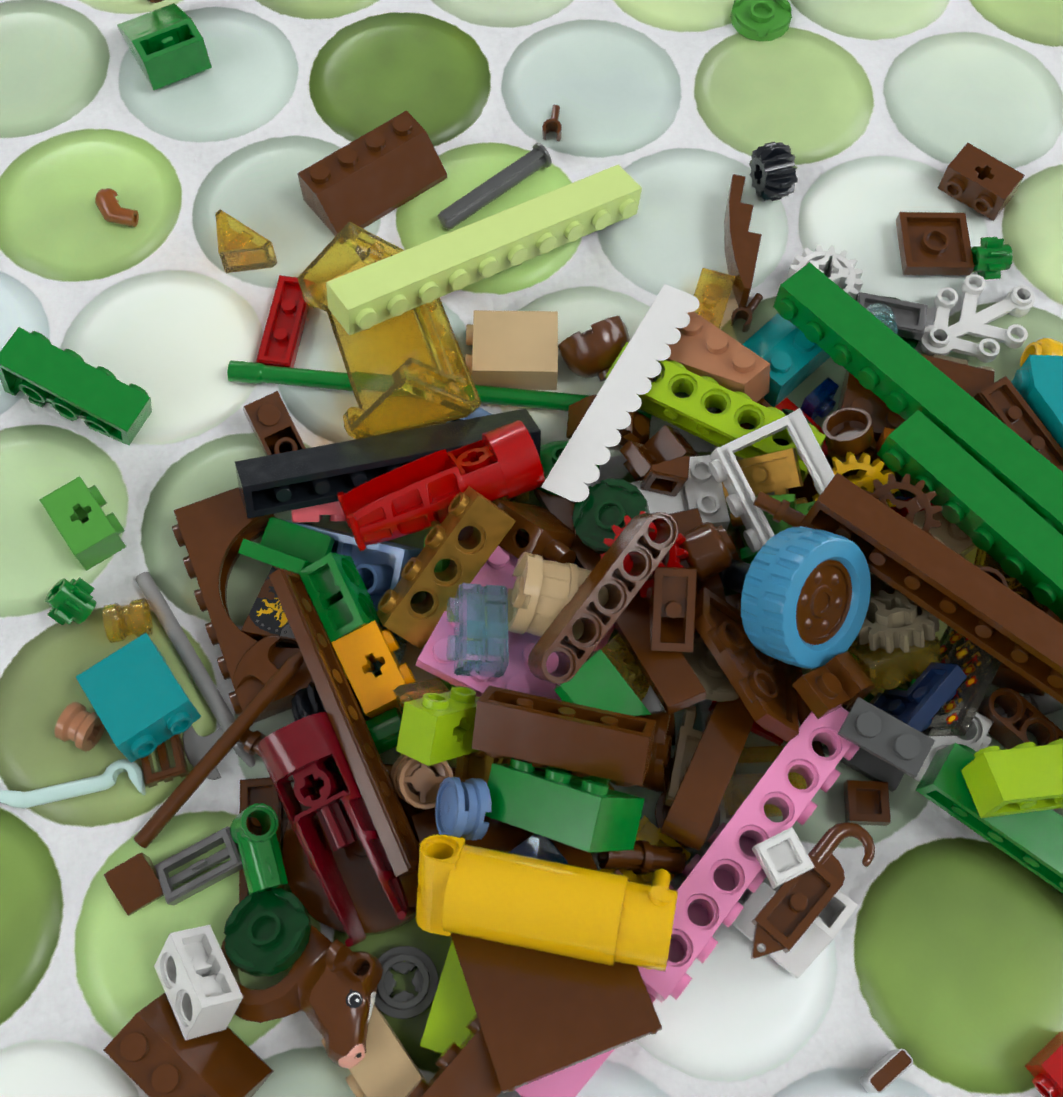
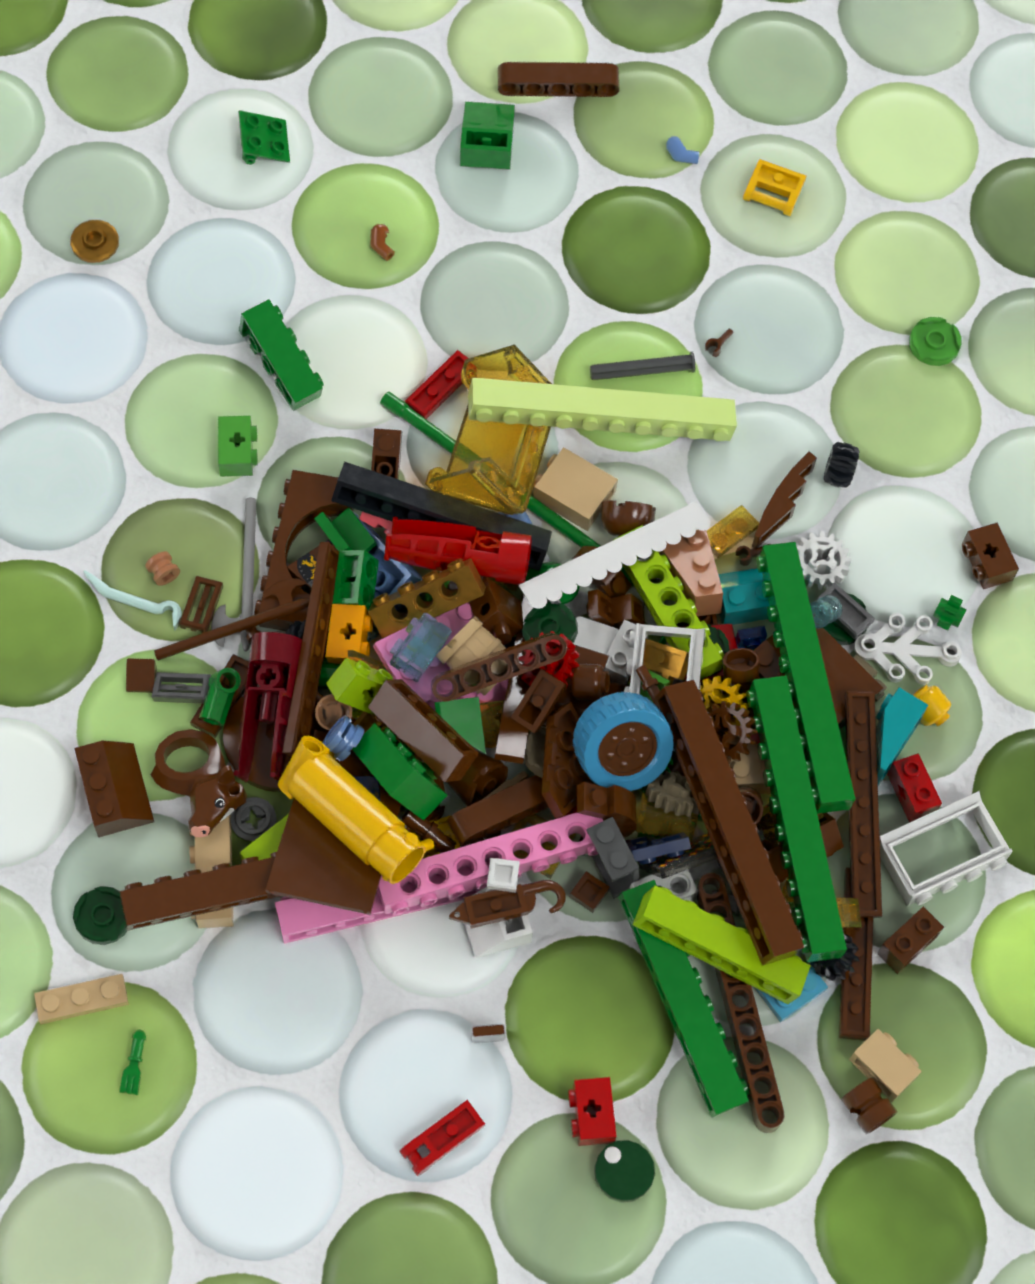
camera: 30 degrees right, 0 degrees up
(70, 601) = (200, 490): green gear -> none
(127, 620) = (226, 521): clear yellow wheel -> none
(138, 698) = (204, 571): teal panel -> none
(198, 982) = (143, 745): white brick -> none
(242, 247) = (443, 315): clear yellow slope -> none
(267, 932) = (196, 743): dark green tile -> none
(372, 174) = (564, 313): reddish brown slope -> none
(667, 476) = (604, 625): reddish brown slope -> none
(934, 243) = (920, 580): reddish brown plate -> none

